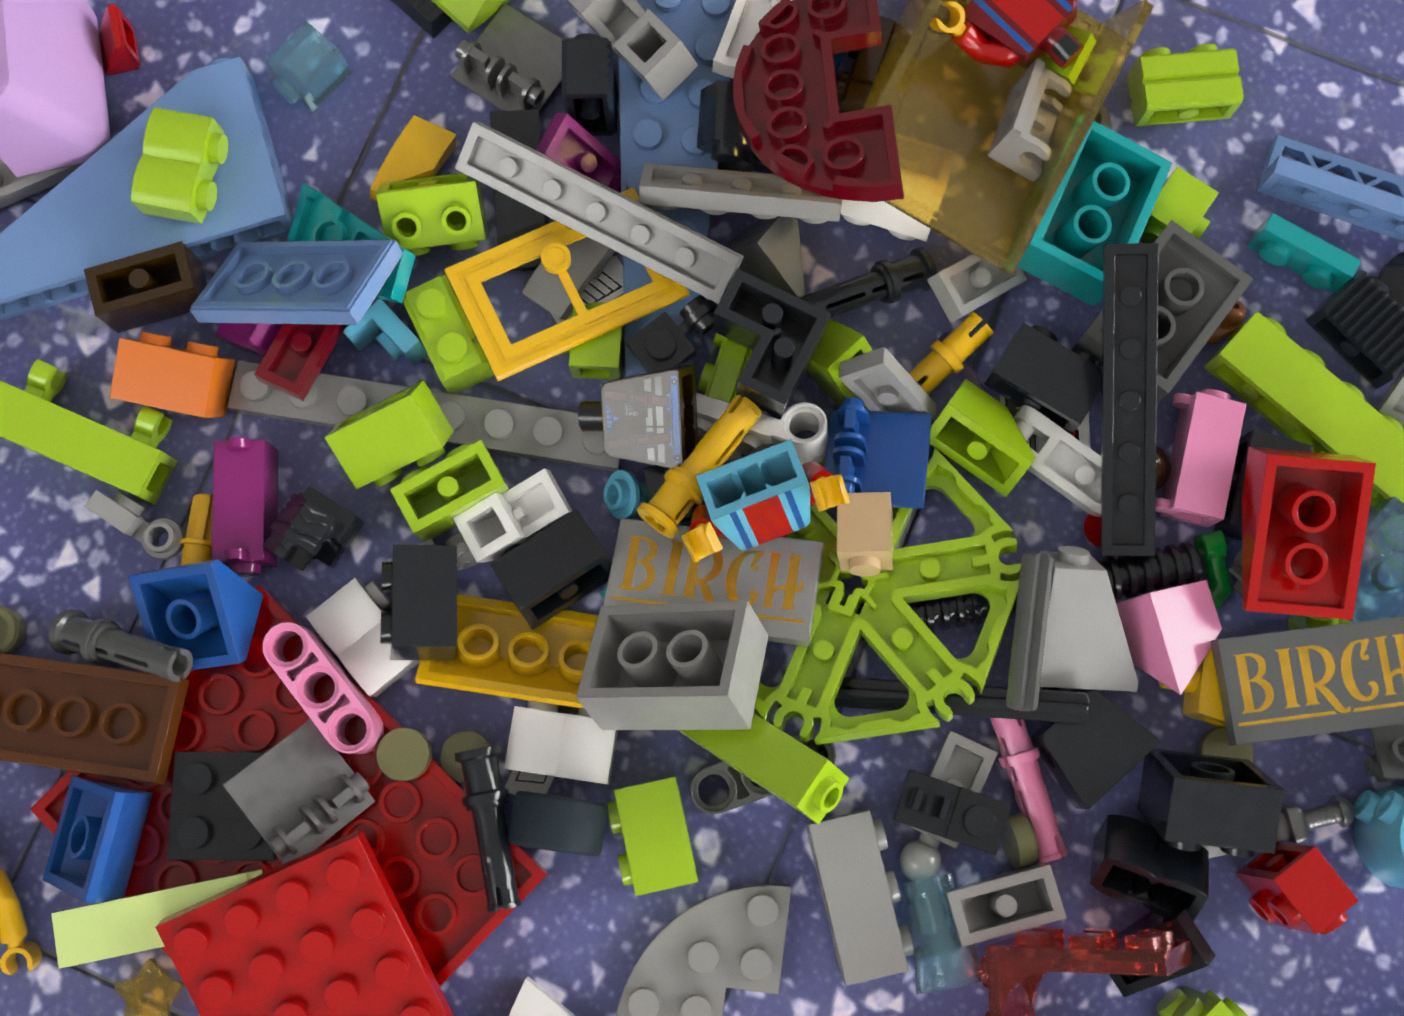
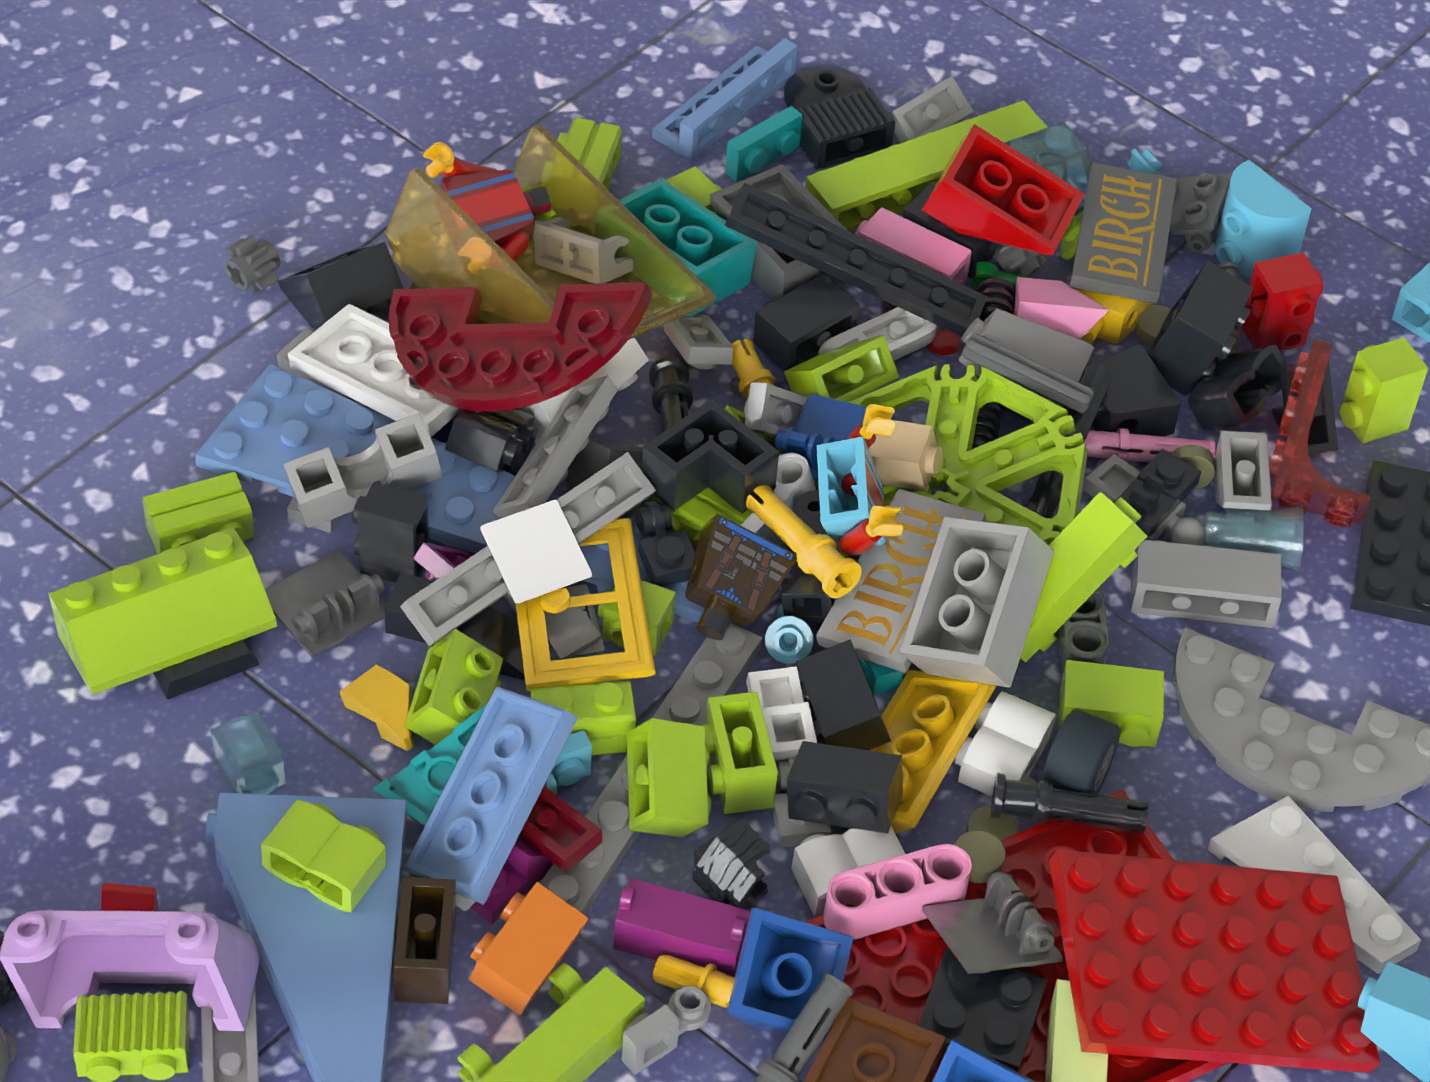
camera: 75 degrees left, 30 degrees down
(587, 217) = (536, 551): none -> white sticker

